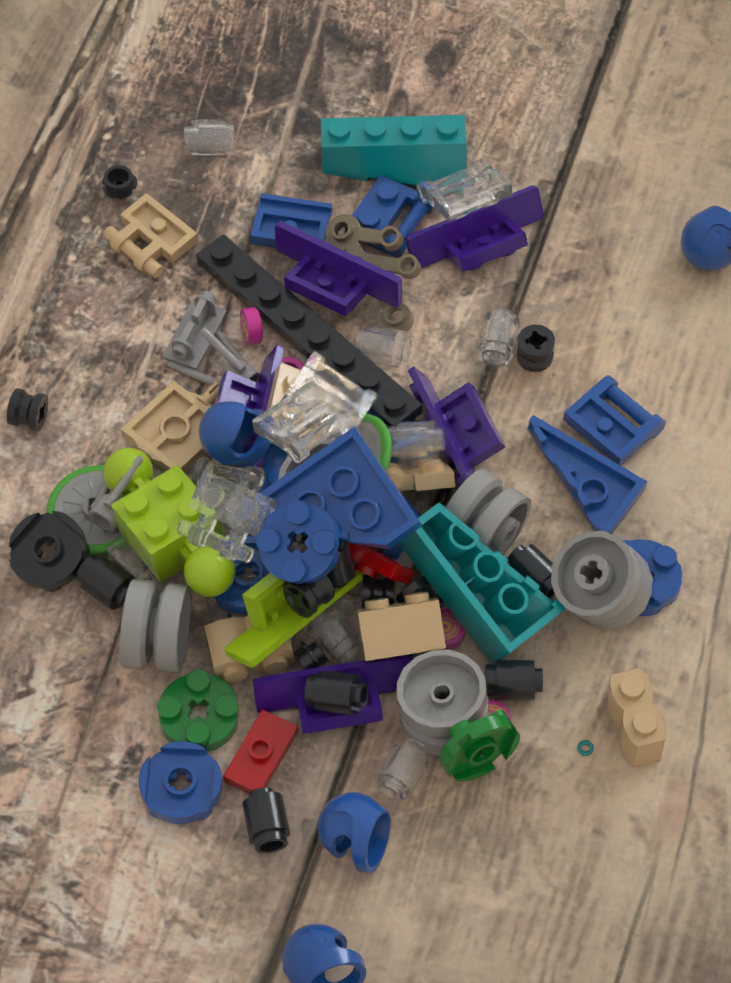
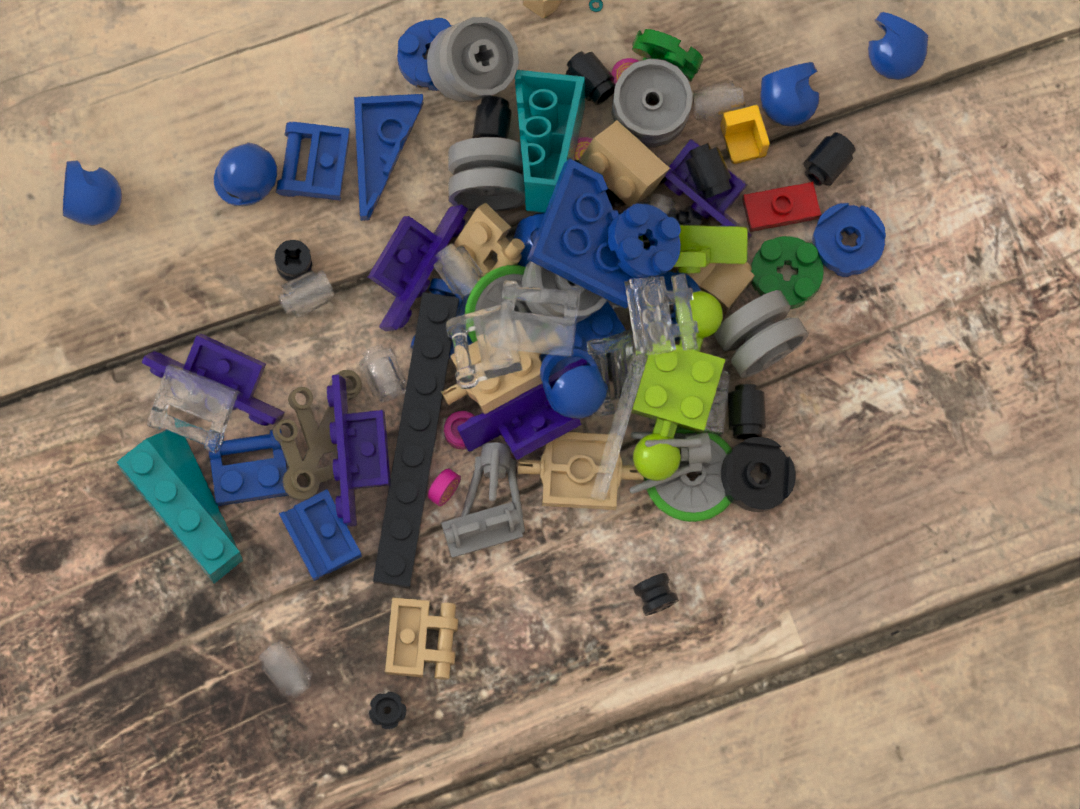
camera: 135 degrees left, 15 degrees up
(162, 437) = (618, 428): none -> clear tile
(351, 771) = (744, 134): none -> yellow panel
(640, 359) = (246, 173): none -> blue helmet

